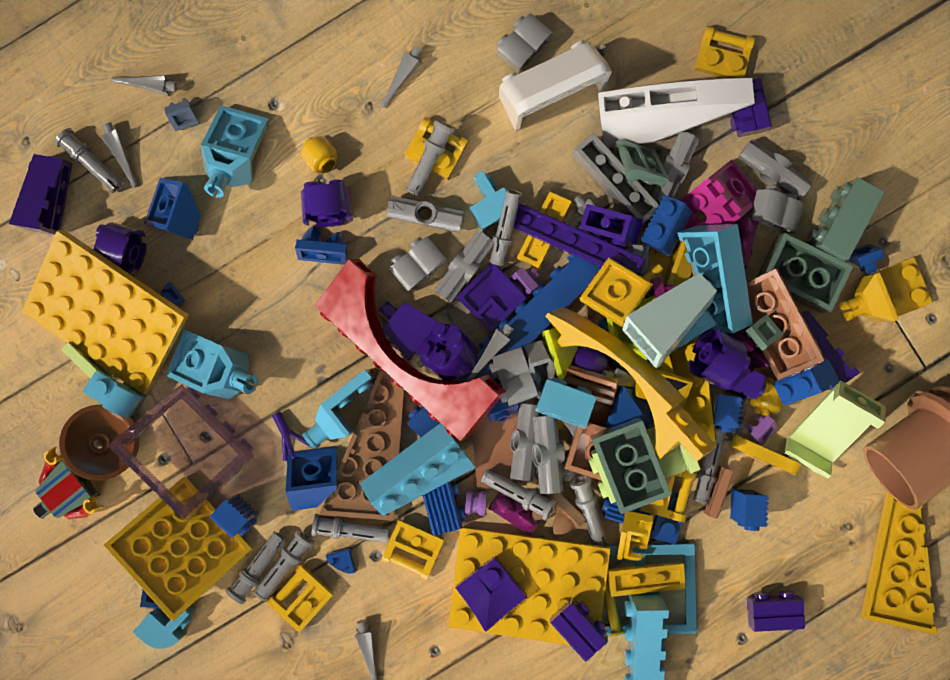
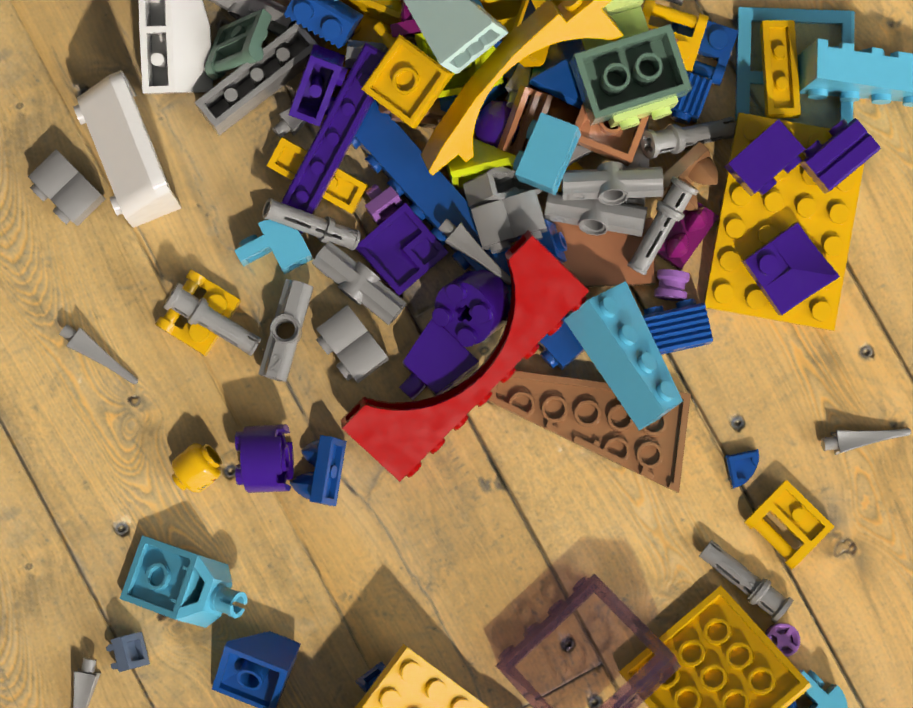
camera: 85 degrees left, 5 degrees down
(211, 367) = (474, 627): medium azure plate -> none
(211, 601) = (790, 638): none -> medium lavender wheel
(235, 516) = (675, 601): blue brick -> none
(285, 432) = (571, 531): dark purple plant -> none
(290, 556) = (733, 535): light grey pin -> none
(311, 477) = (628, 498): blue slope -> none
(329, 419) = (555, 469): medium azure plate -> none
(339, 528) = (699, 468): light grey pin -> none
(416, 542) = (721, 366): yellow plate -> none
(572, 572) = (765, 158): none -> dark purple brick
(612, 613) = (824, 115): yellow piece -> none
(634, 534) = (722, 80): yellow hinge -> none

